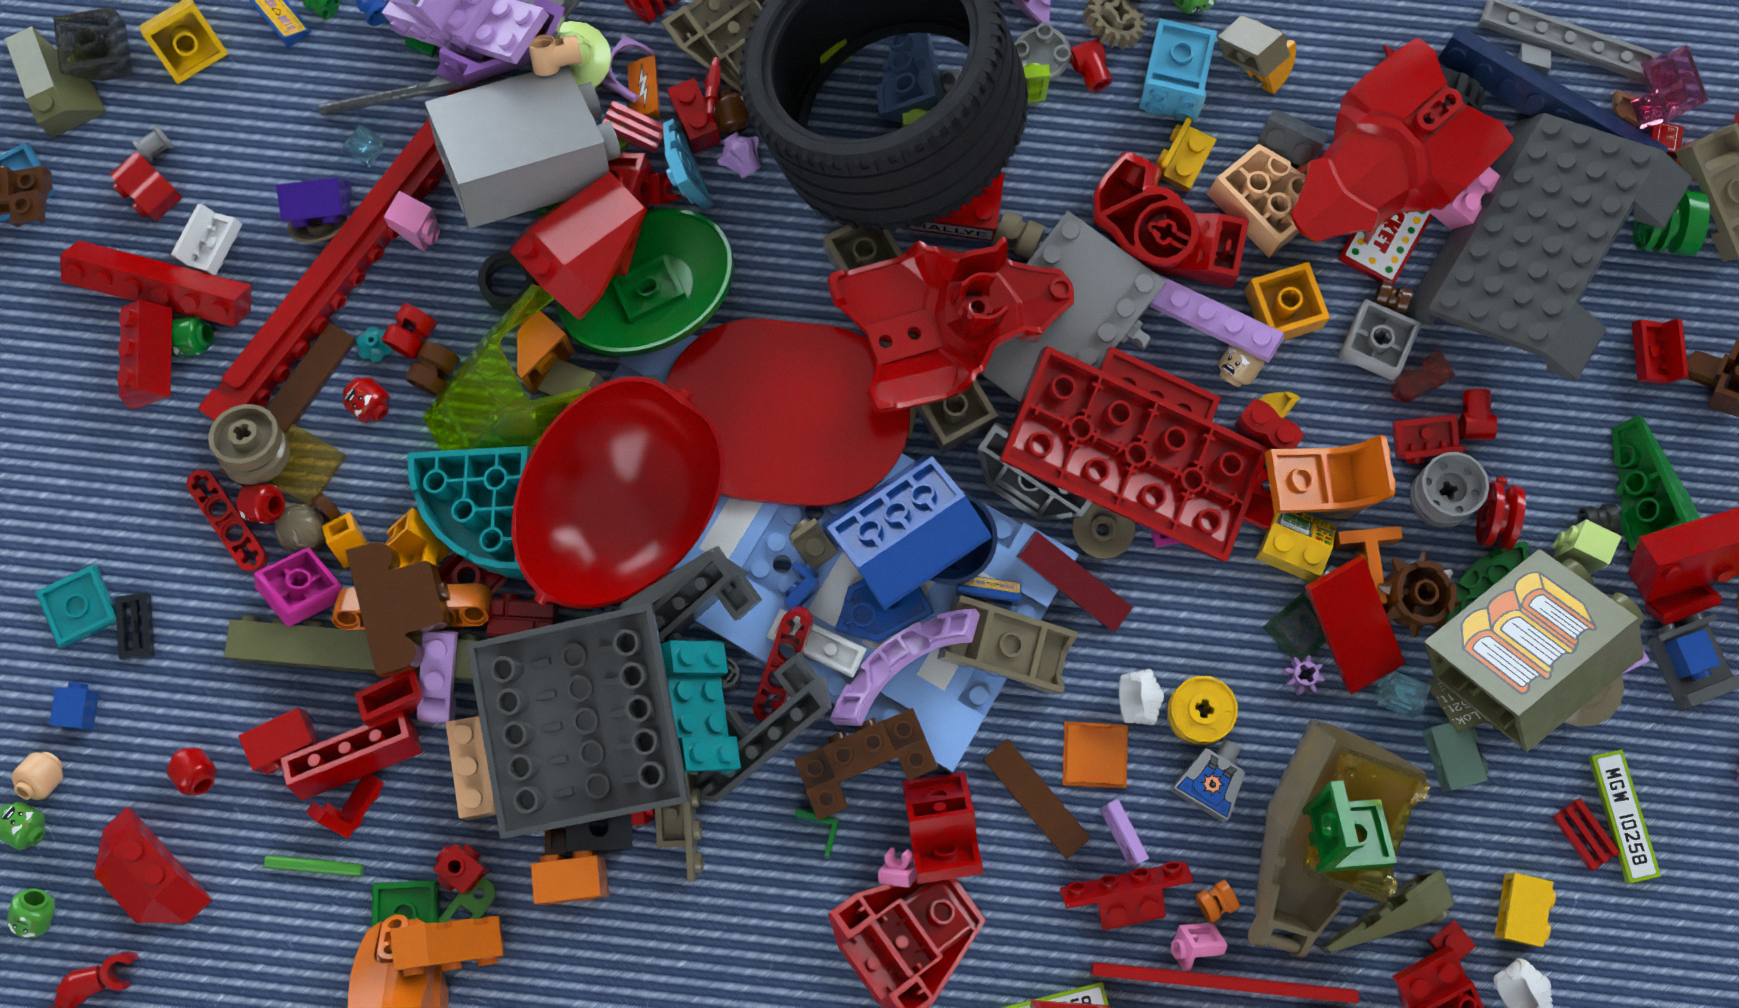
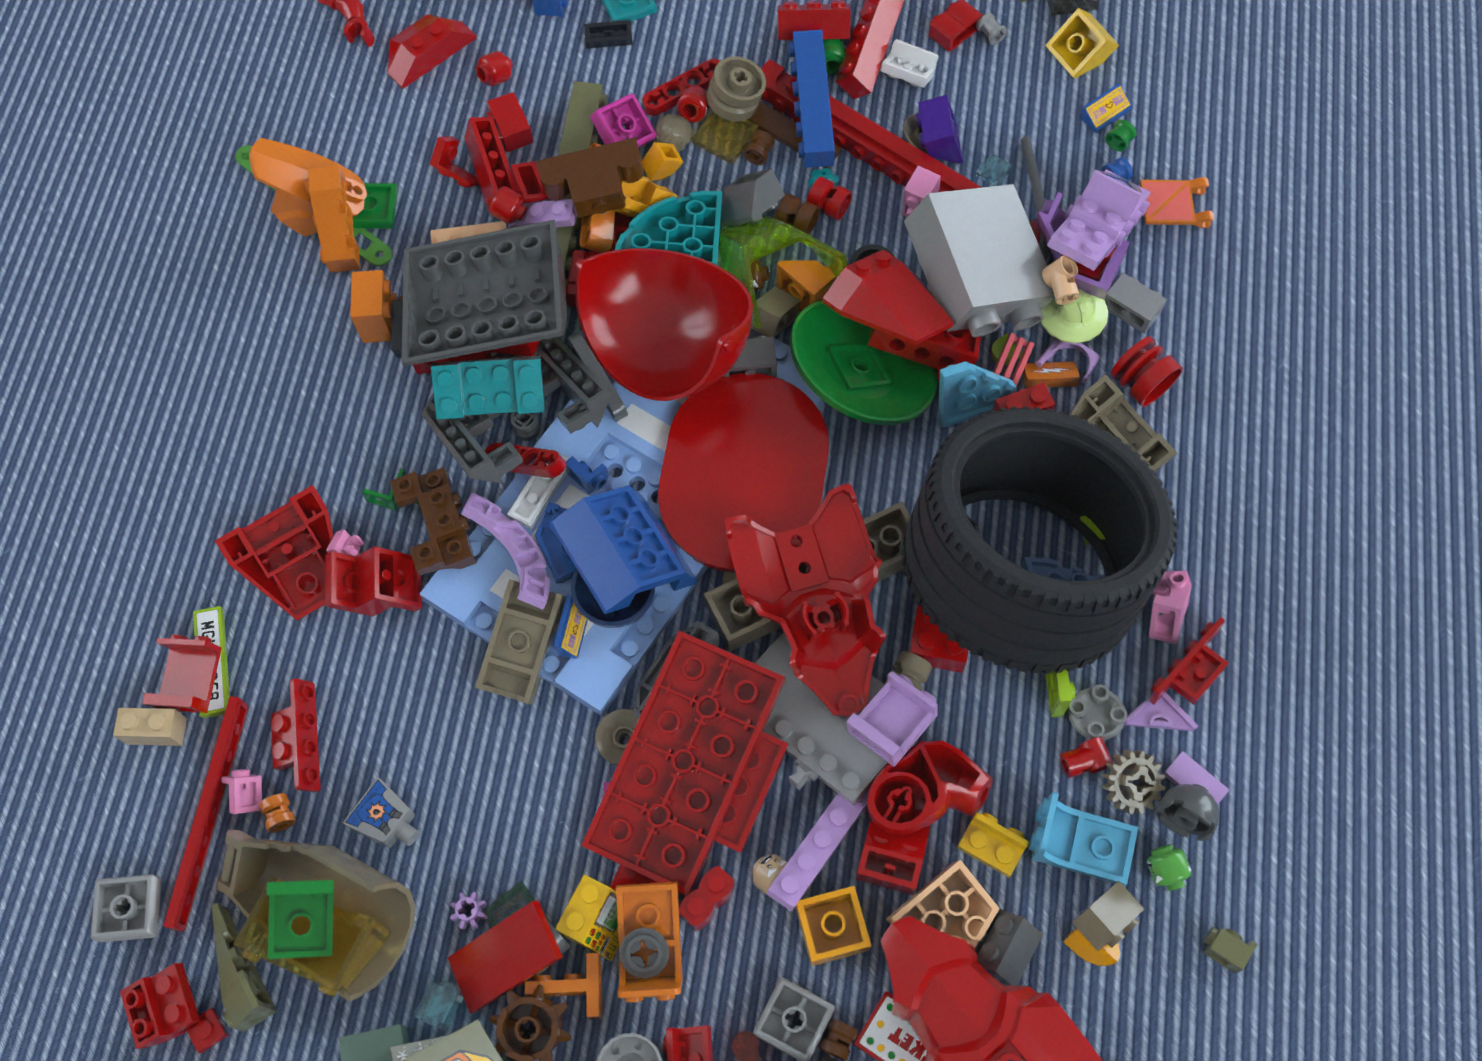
camera: 95 degrees right, 10 degrees down
(268, 348) = (813, 99): none -> blue brick
(313, 865) = (416, 148): bright green bar -> none
(325, 506) = (688, 147): reddish brown tile -> none
(328, 419) = (760, 145): none -> reddish brown wheel
(366, 399) = (780, 165): red head -> none
(415, 419) = (750, 197): none -> dark grey slope
(428, 718) = (506, 205): none -> red head
(471, 869) = (395, 236): red brick -> none
(679, 828) = (404, 388): dark tan bracket -> none
(812, 543) = (630, 477): dark tan bracket -> none
(1036, 799) = (390, 667): reddish brown tile -> none
(1074, 581) = (573, 704): dark red tile -> none
(1078, 239) = (894, 718): none -> lavender panel
(1095, 755) = (423, 721): orange piece -> none
(1123, 833) = (344, 730): lavender tile -> none
(1140, 697) = (464, 761): white hair -> none
(1217, 700) = (439, 799): yellow wheel -> none
(1281, 402) = (736, 915): yellow tile -> none
(1342, 468) = (635, 964): none -> dark grey gear

